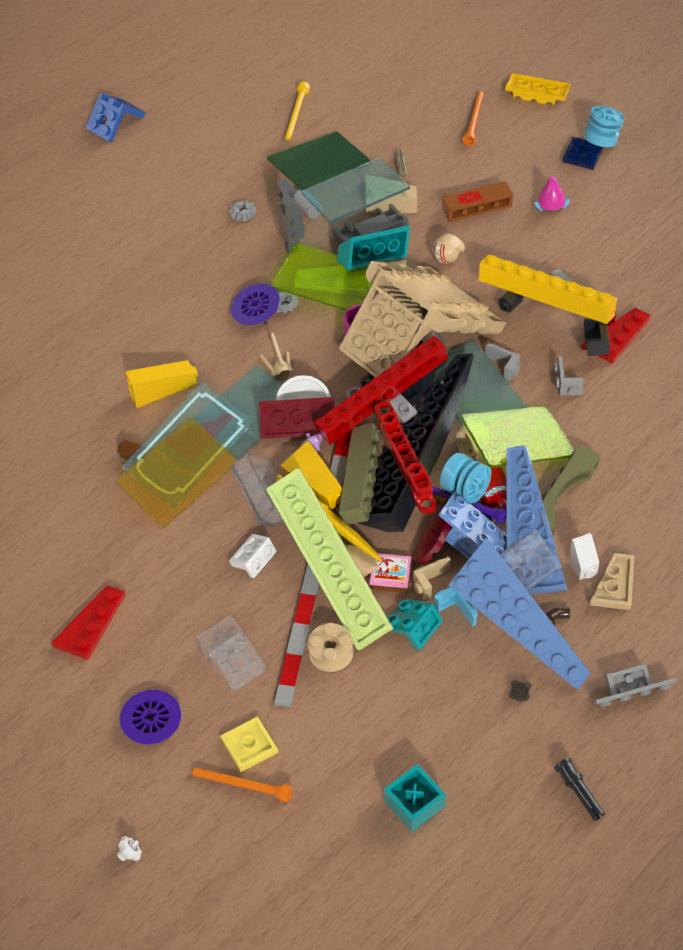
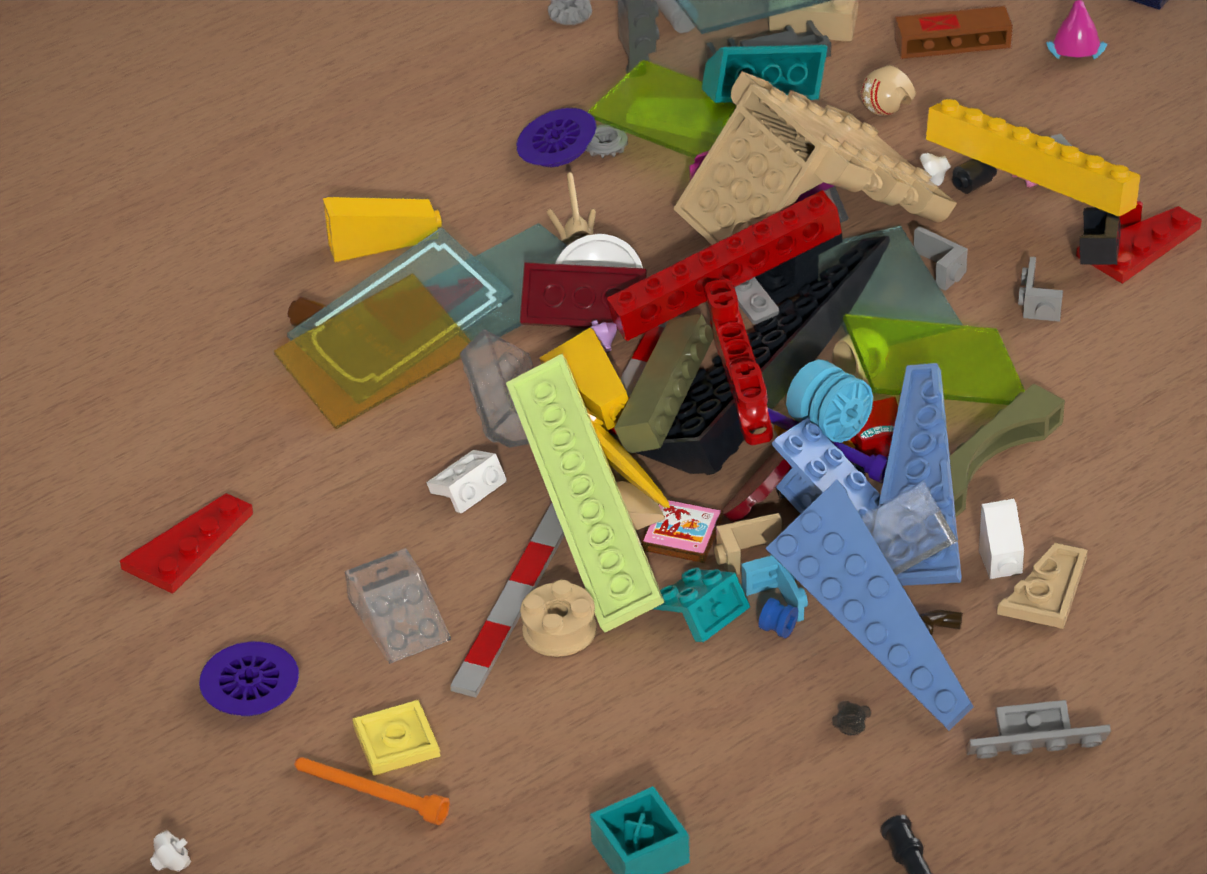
camera: 10 degrees right, 10 degrees down
(462, 627) = (778, 617): none -> blue wheel
(487, 298) = (935, 167): none -> white piece

